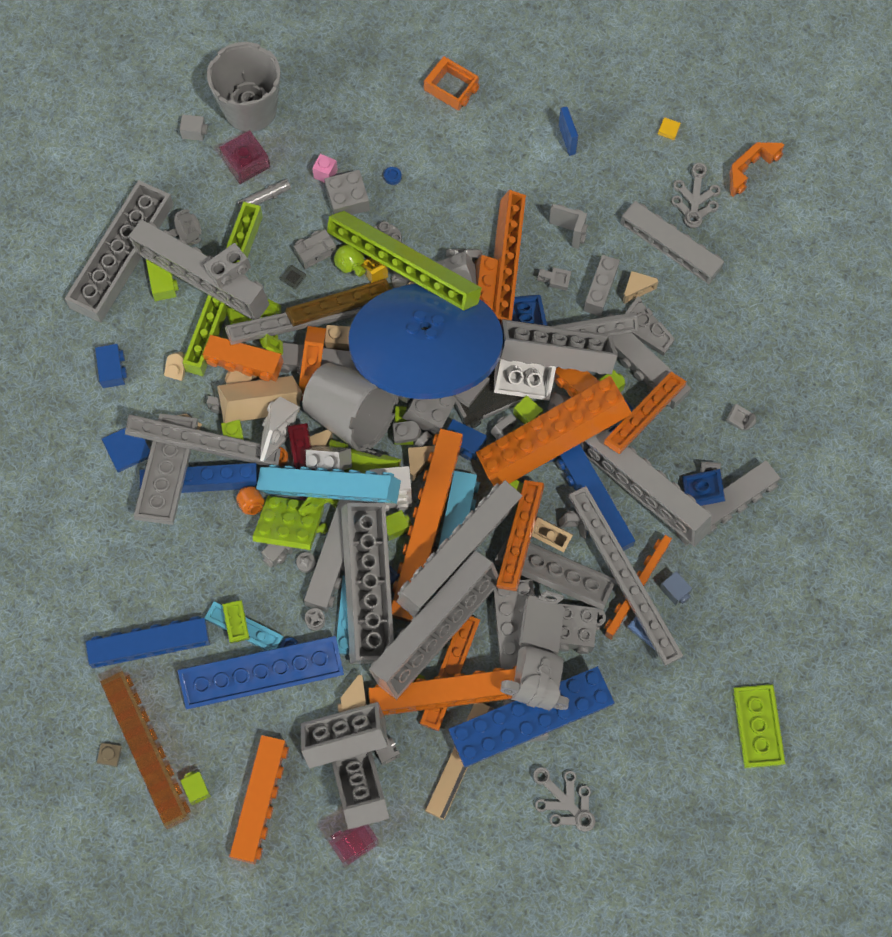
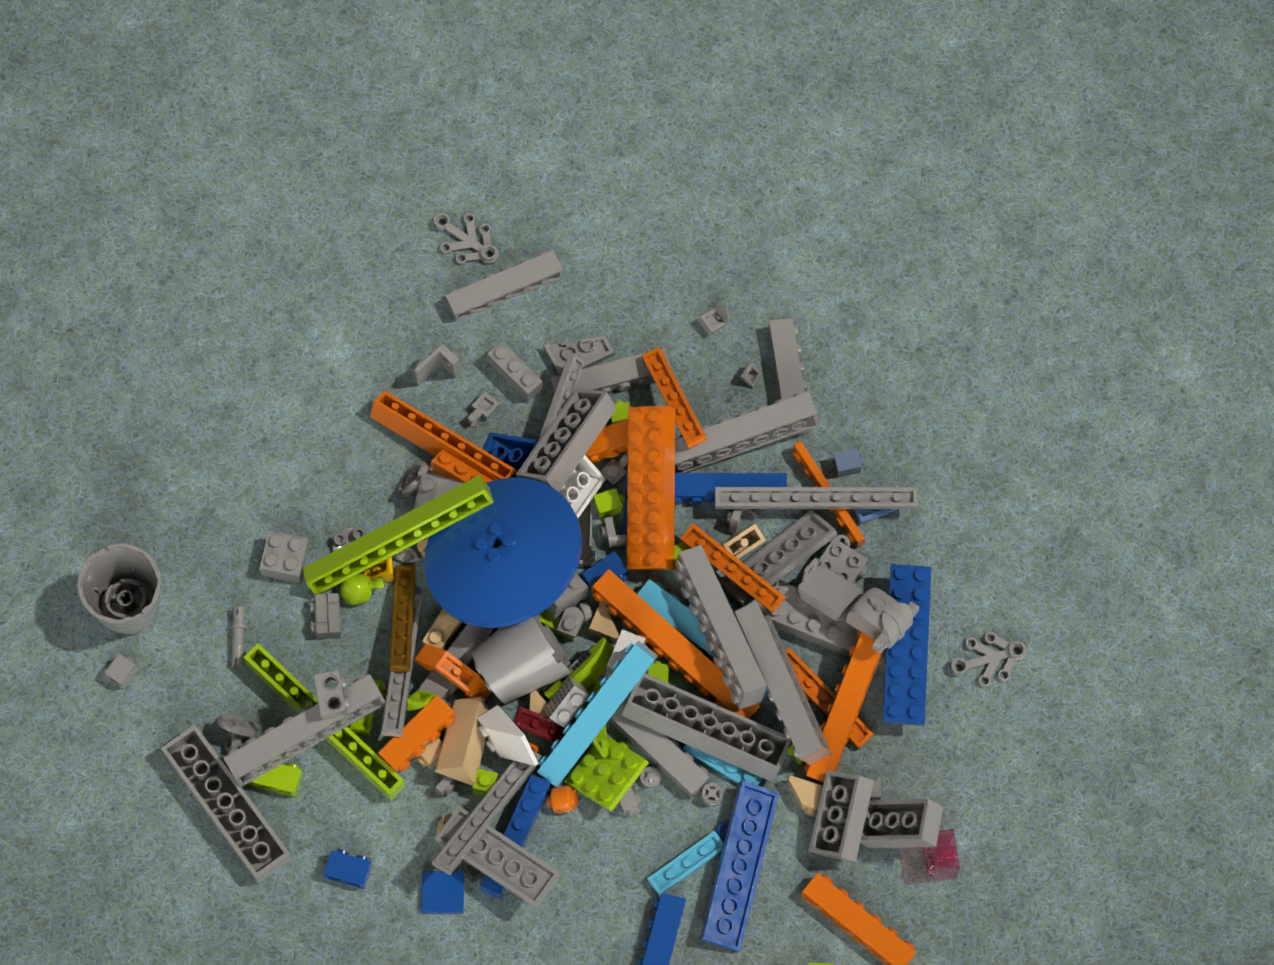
camera: 65 degrees left, 0 degrees up
(174, 366) = (382, 805): tan plate -> none
(236, 621) = (680, 865): lime plate -> none
(244, 157) = (187, 634): clear pink brick -> none
(293, 277) = (344, 651): clear smoke tile -> none
(324, 168) = (244, 564): bright pink brick -> none
(392, 175) = (284, 505): blue tile -> none
(446, 65) = (207, 384): orange window -> none
(452, 775) = (914, 738): tan tile -> none
(568, 131) = (335, 316): blue tile -> none
(638, 286) = (531, 339): tan slope -> none
(669, 128) = (379, 224): yellow tile -> none
(705, 487) = (766, 386): blue tile -> none
(759, 726) = (1005, 461): lime tile -> none
(766, 150) = (471, 192): orange slope -> none

